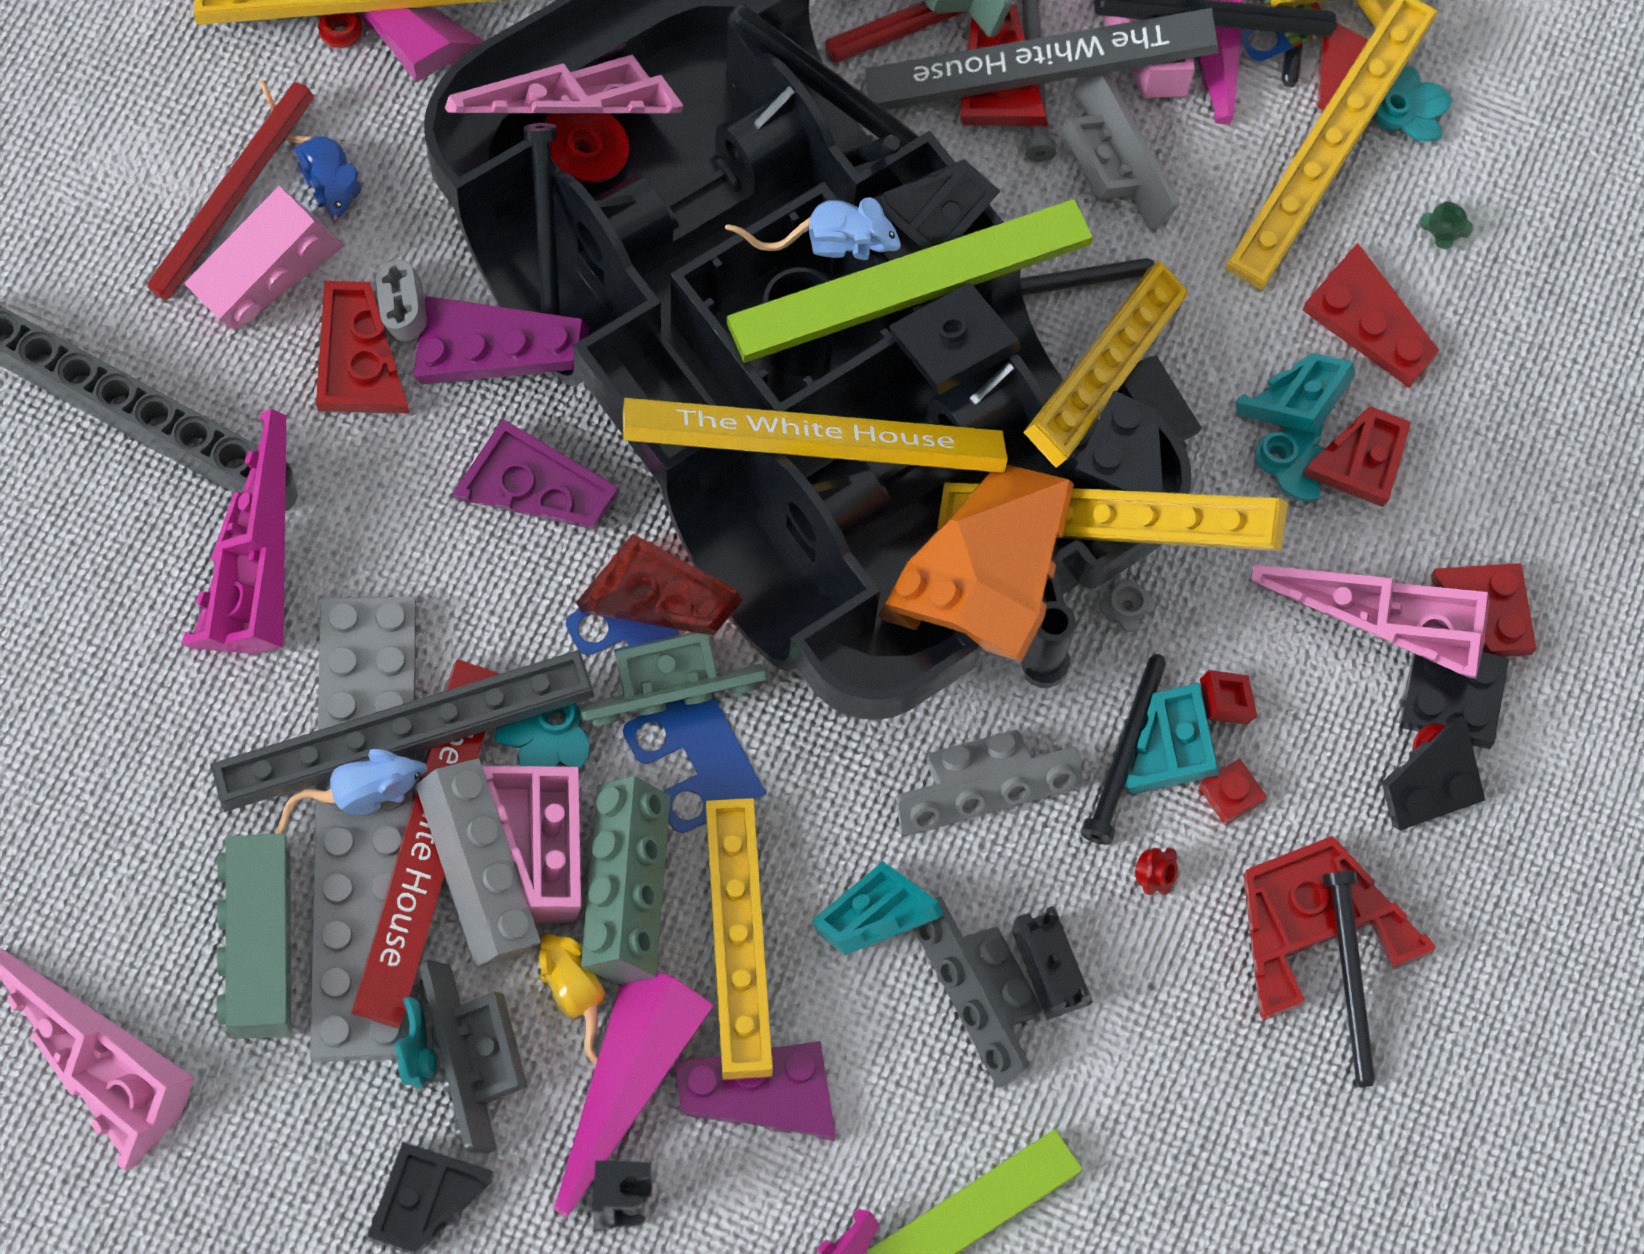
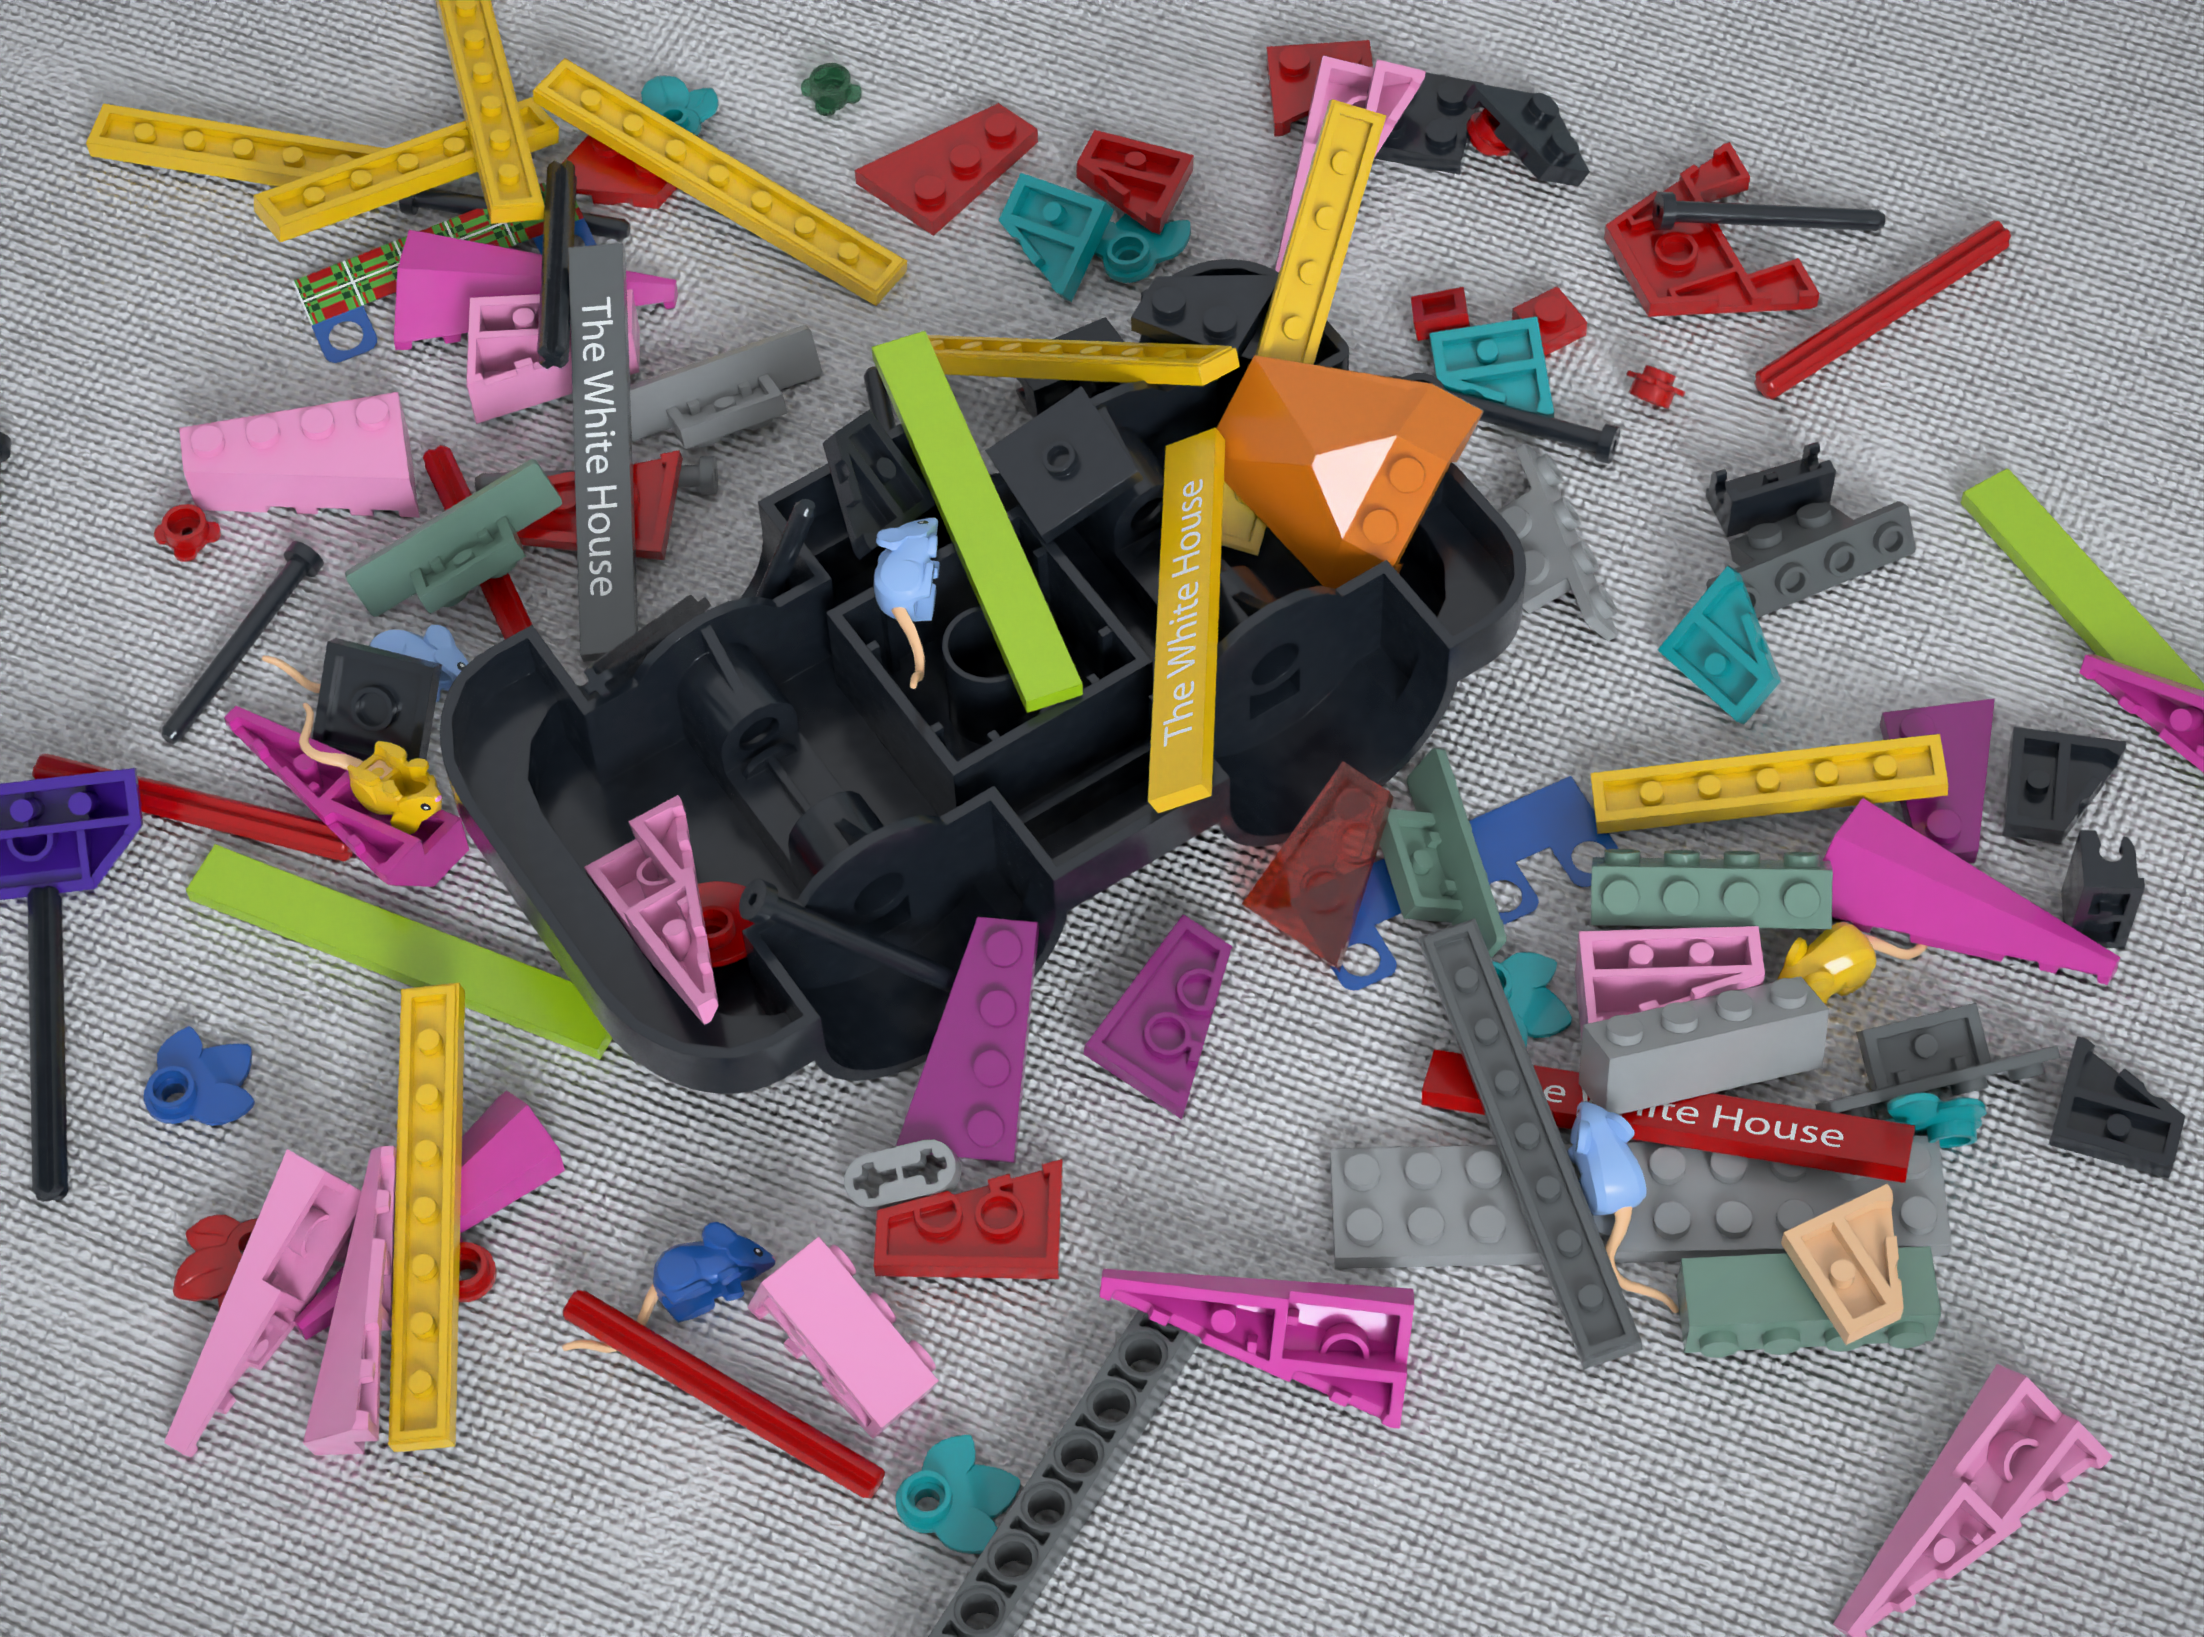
camera: 80 degrees left, 10 degrees down
(148, 351) = (966, 1496): none -> teal plate
(261, 954) = (1851, 1263): none -> light nougat wing
(750, 1179) = (2054, 781): none -> black wing
(1262, 1079) = (1882, 309): none -> red axle

